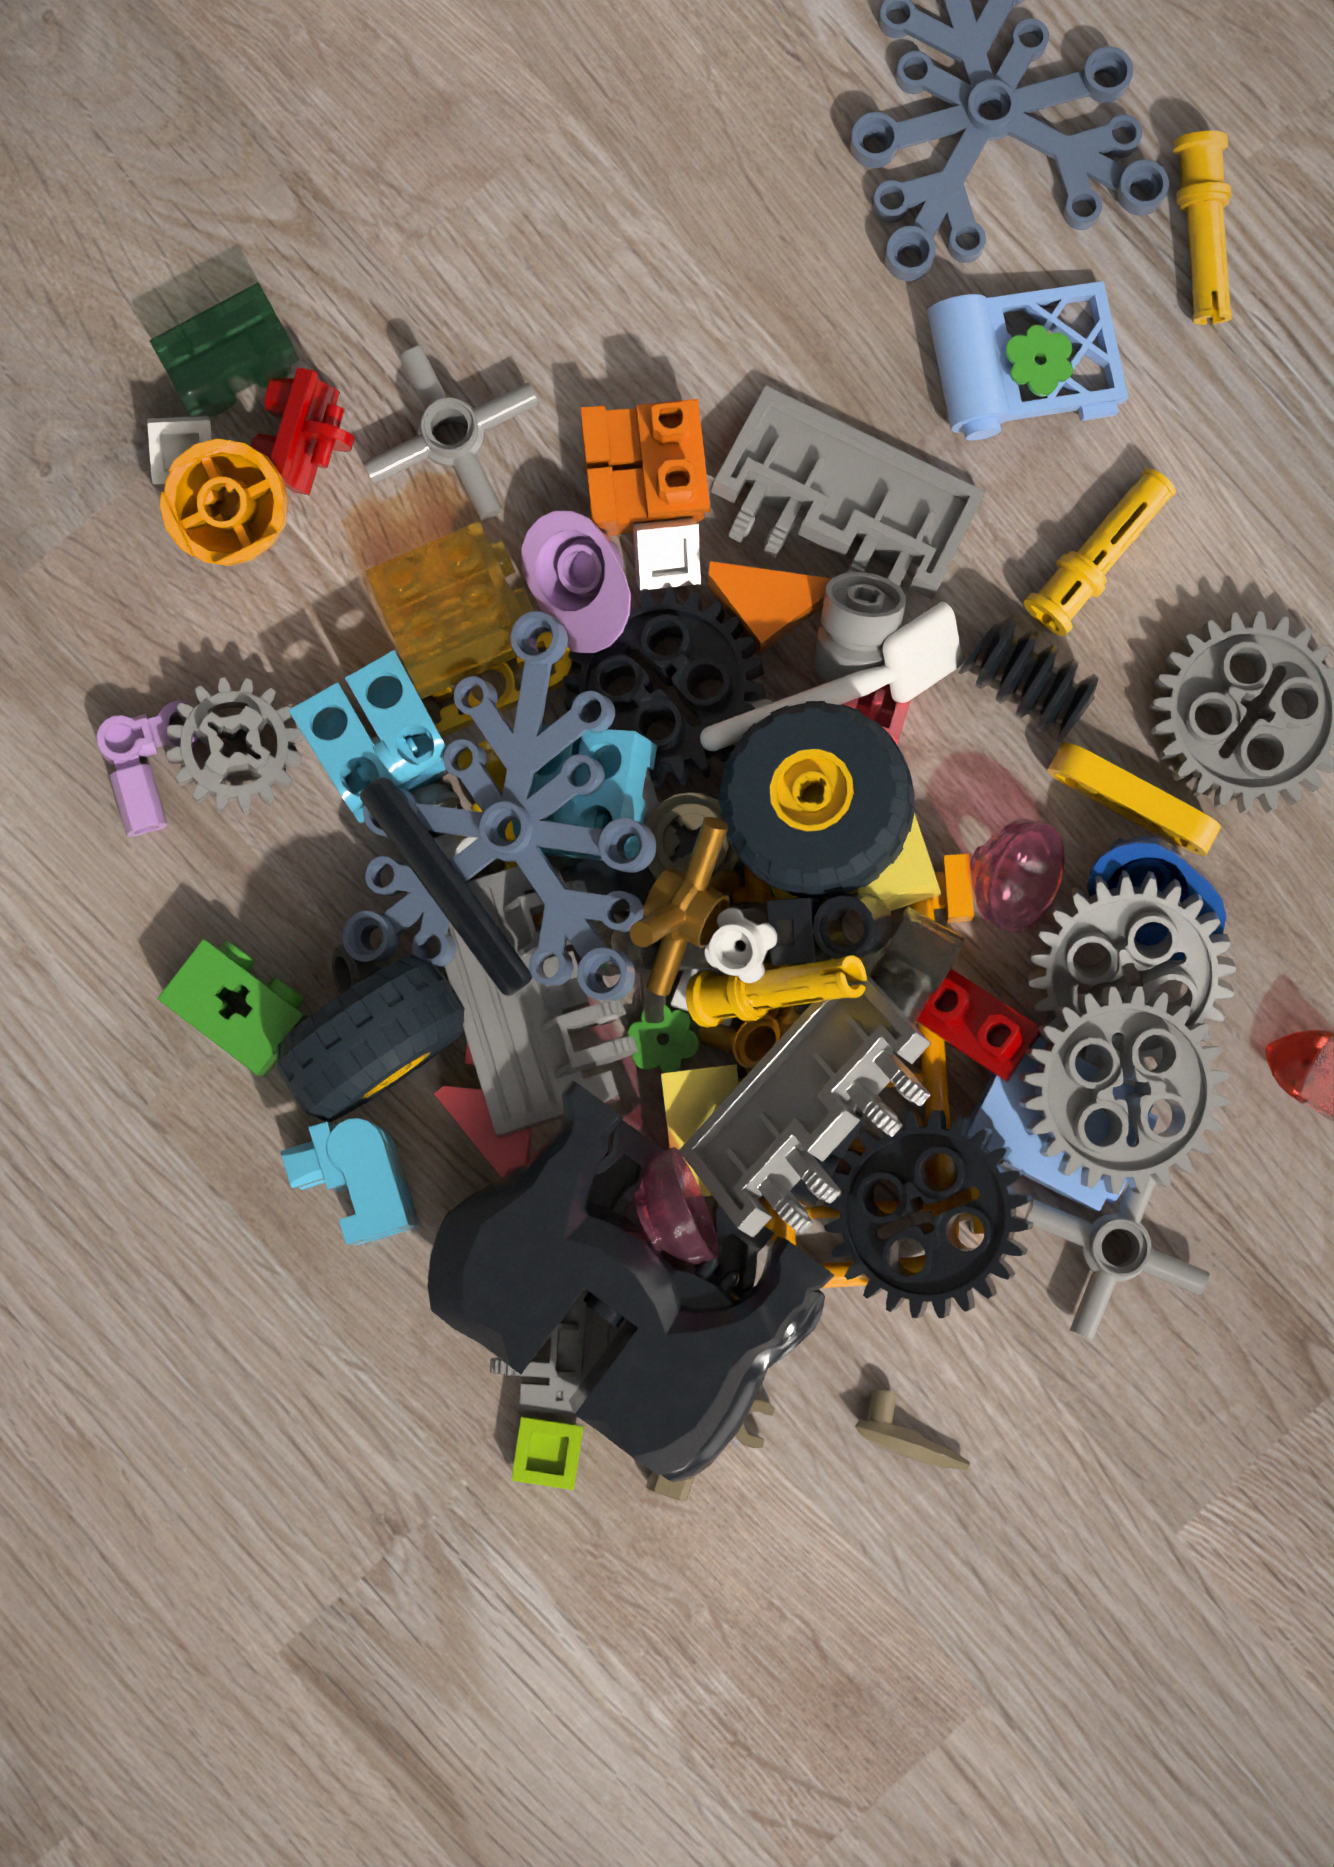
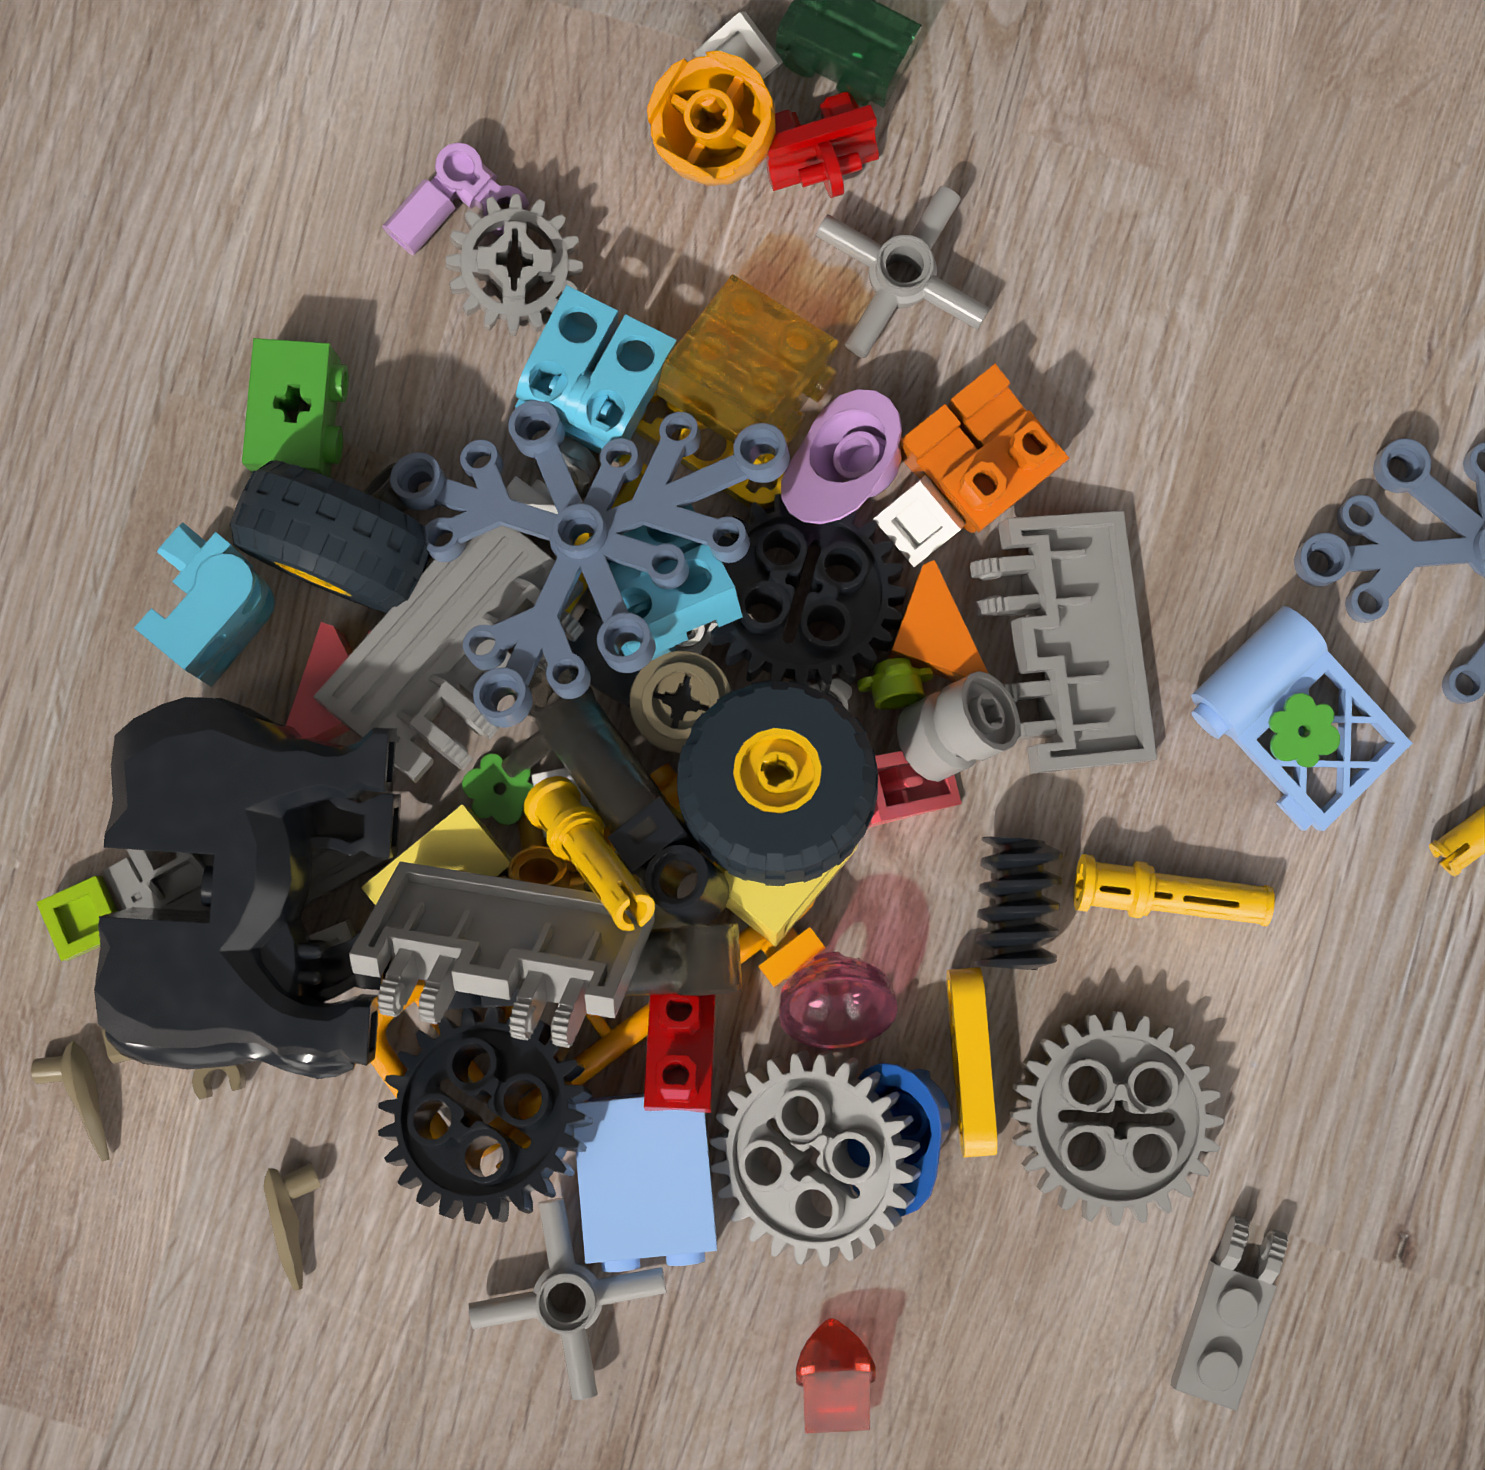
camera: 55 degrees right, 0 degrees up
(445, 886) = (496, 513): black axle -> none
(675, 1210) = (341, 892): clear pink piece -> none
(685, 906) = (609, 729): pearl gold bar -> none
(685, 1541) = (81, 1087): none -> dark tan bar
(724, 954) = (589, 793): white plate -> none
(788, 659) = (895, 683): none -> lime plate
(913, 658) = (961, 790): white piece -> none
(1180, 1079) = (742, 1259): light grey gear -> none

